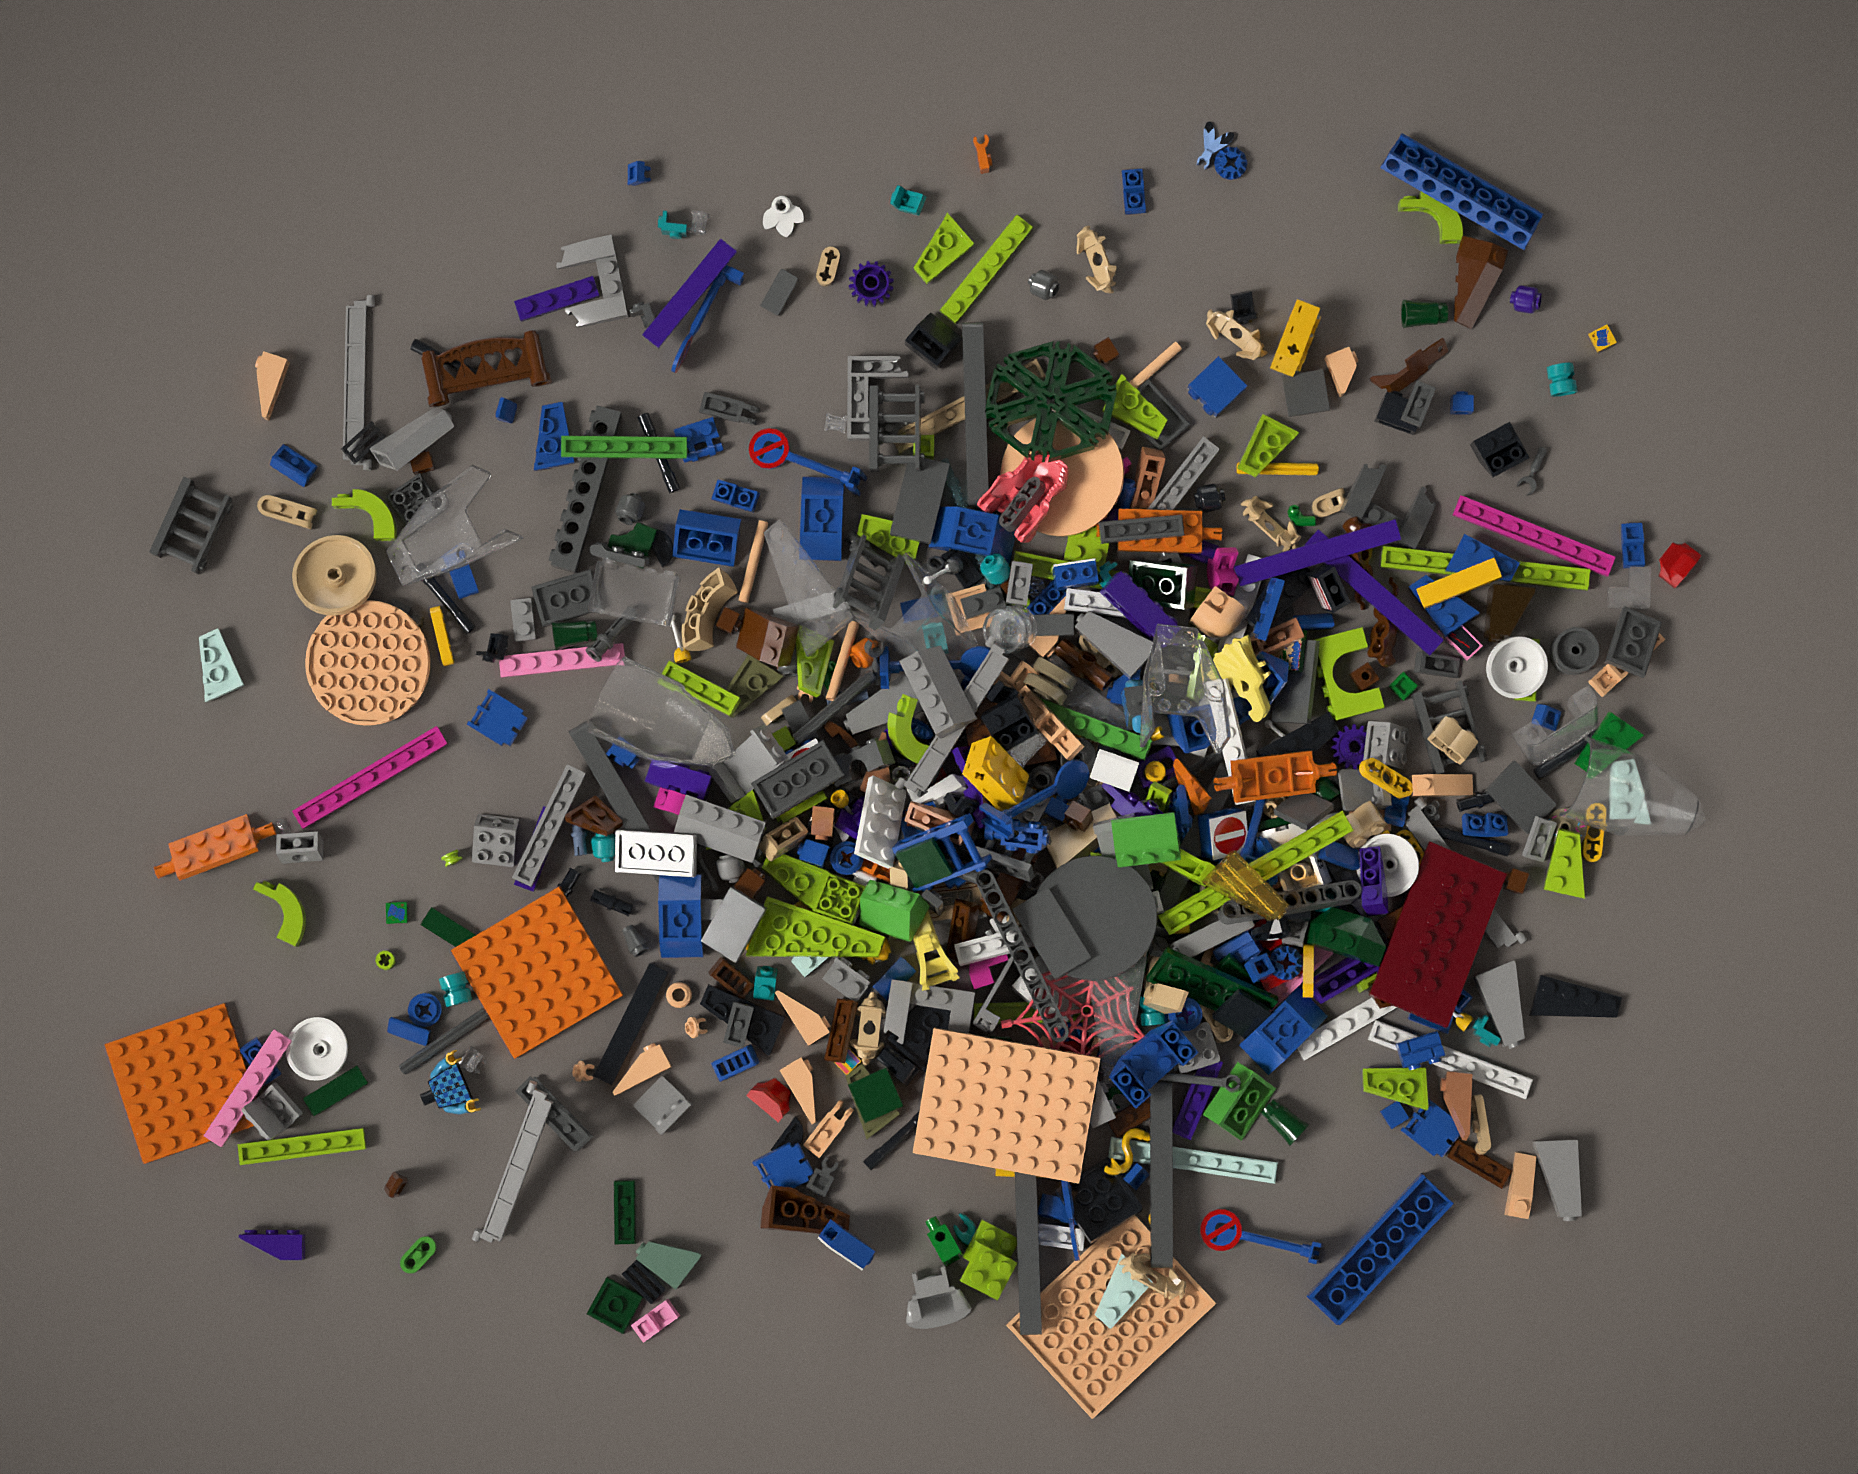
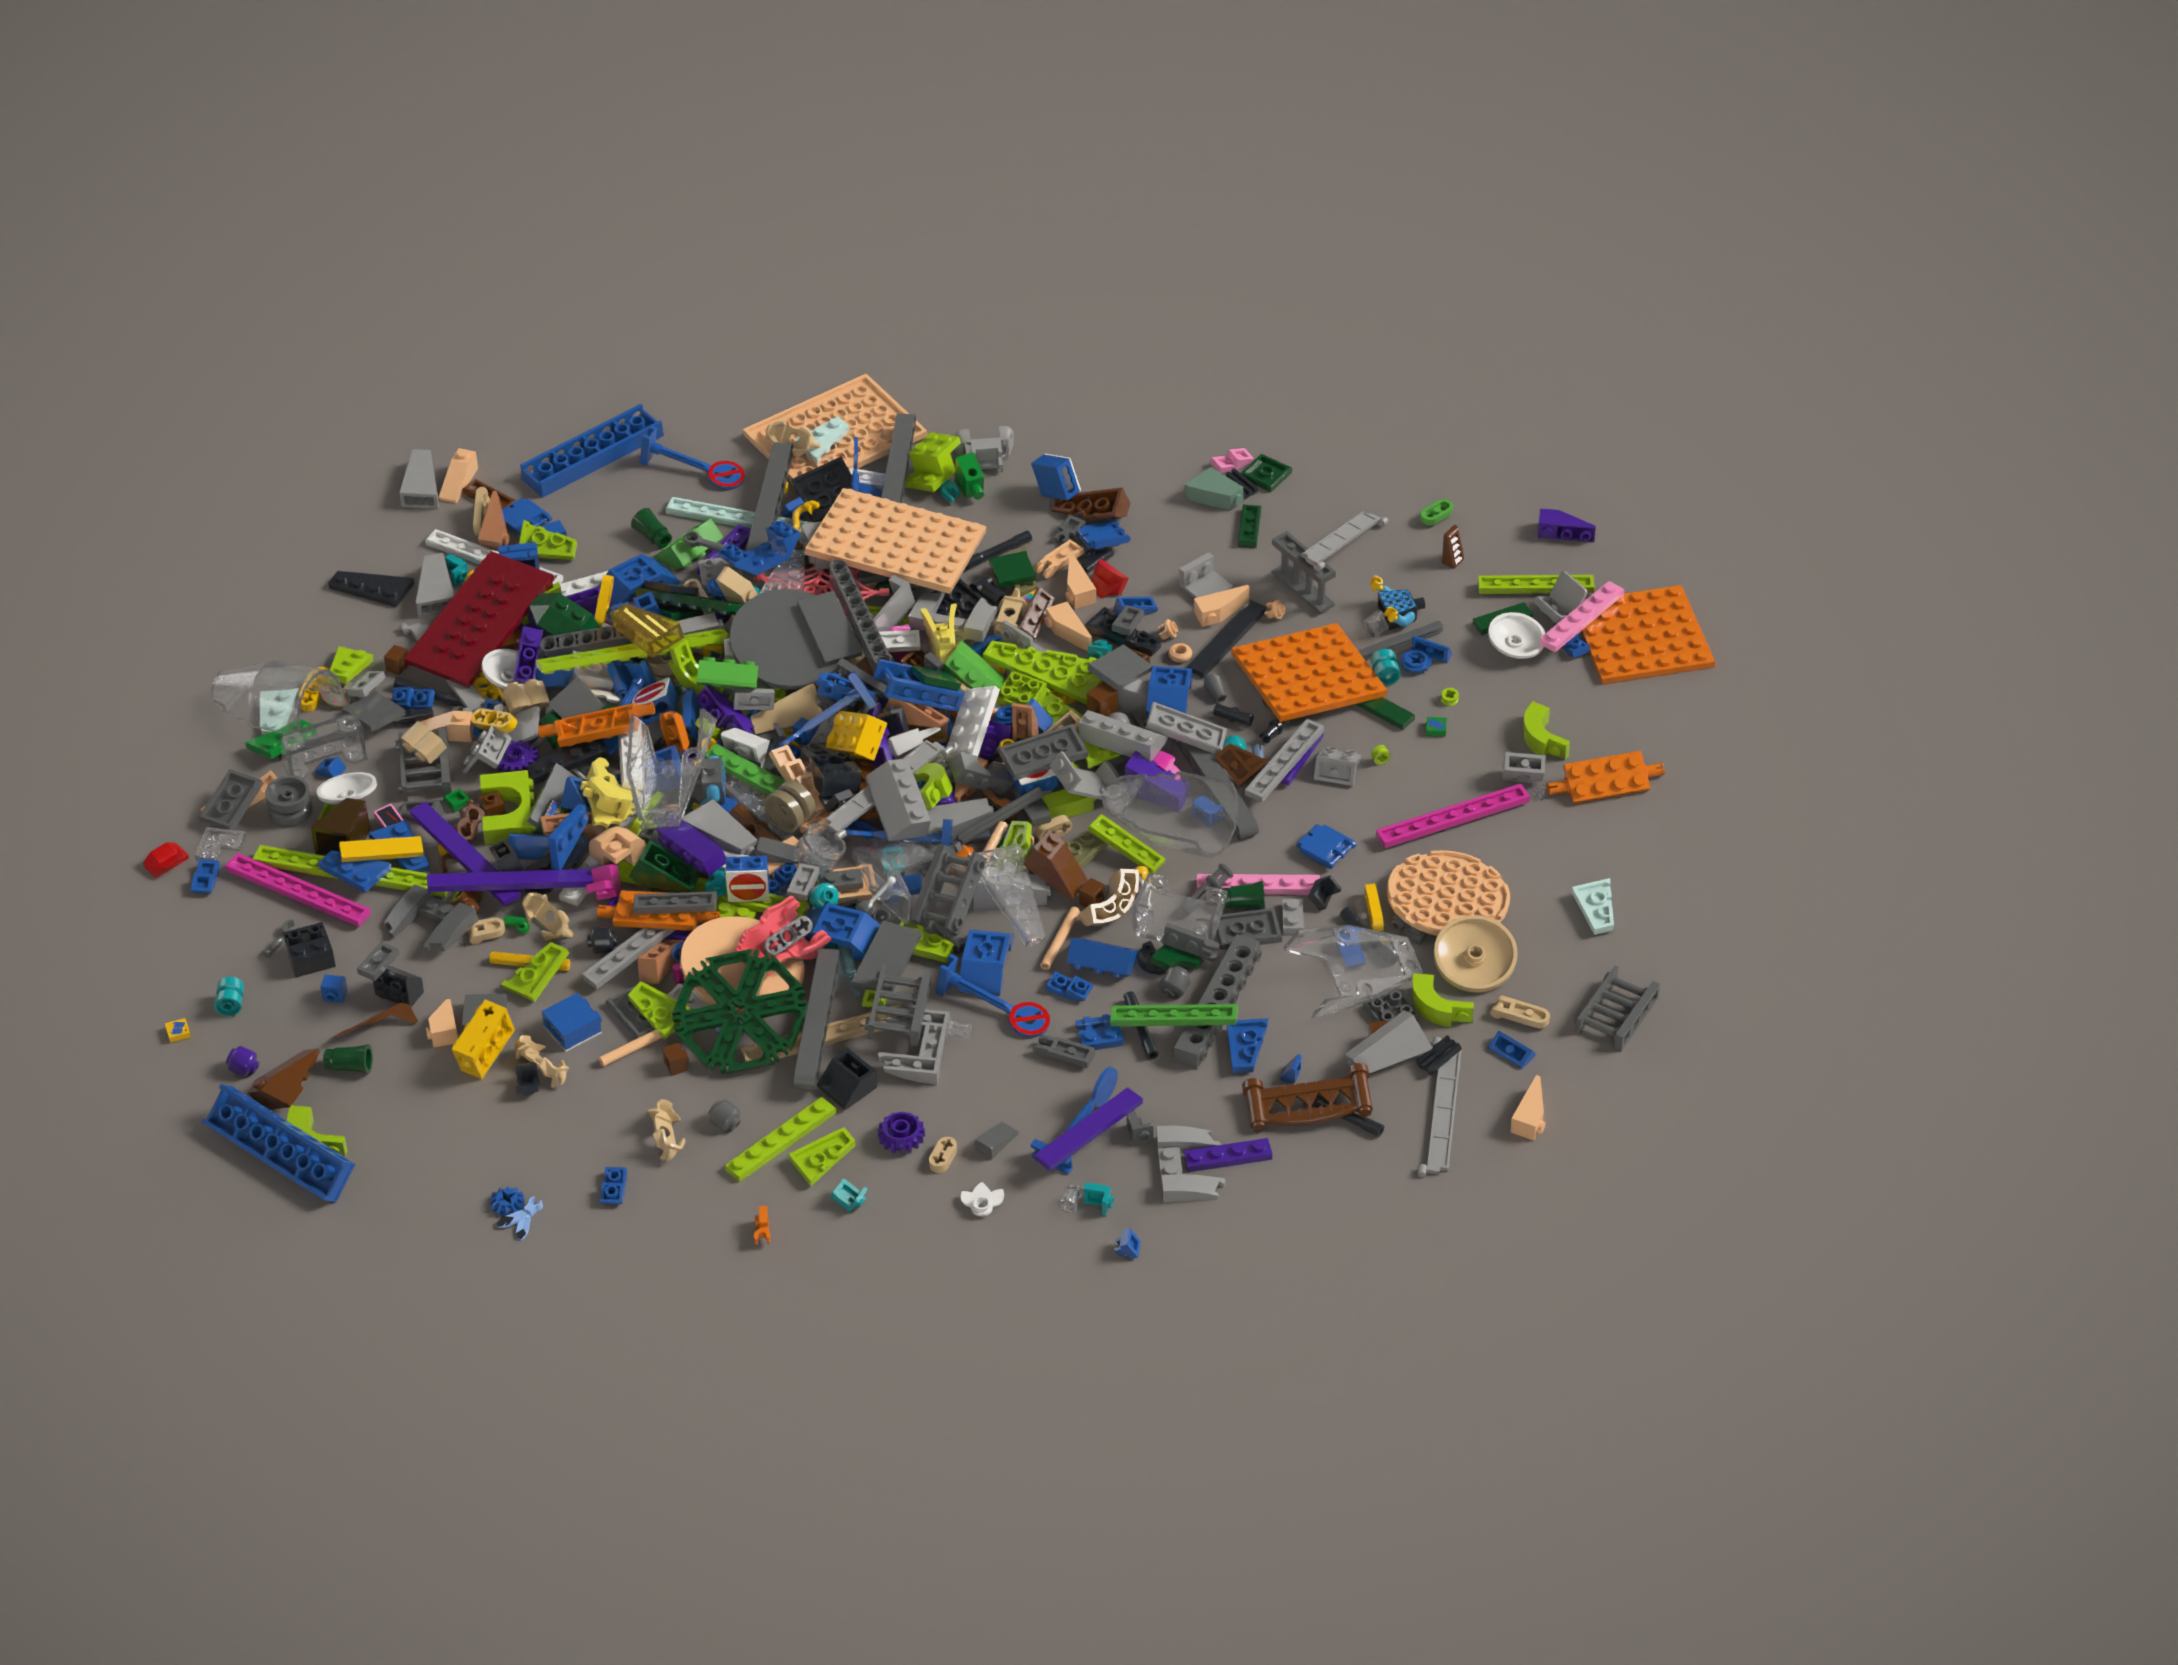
camera: 170 degrees left, 40 degrees down
(1078, 816) = (786, 718): reddish brown plate -> none

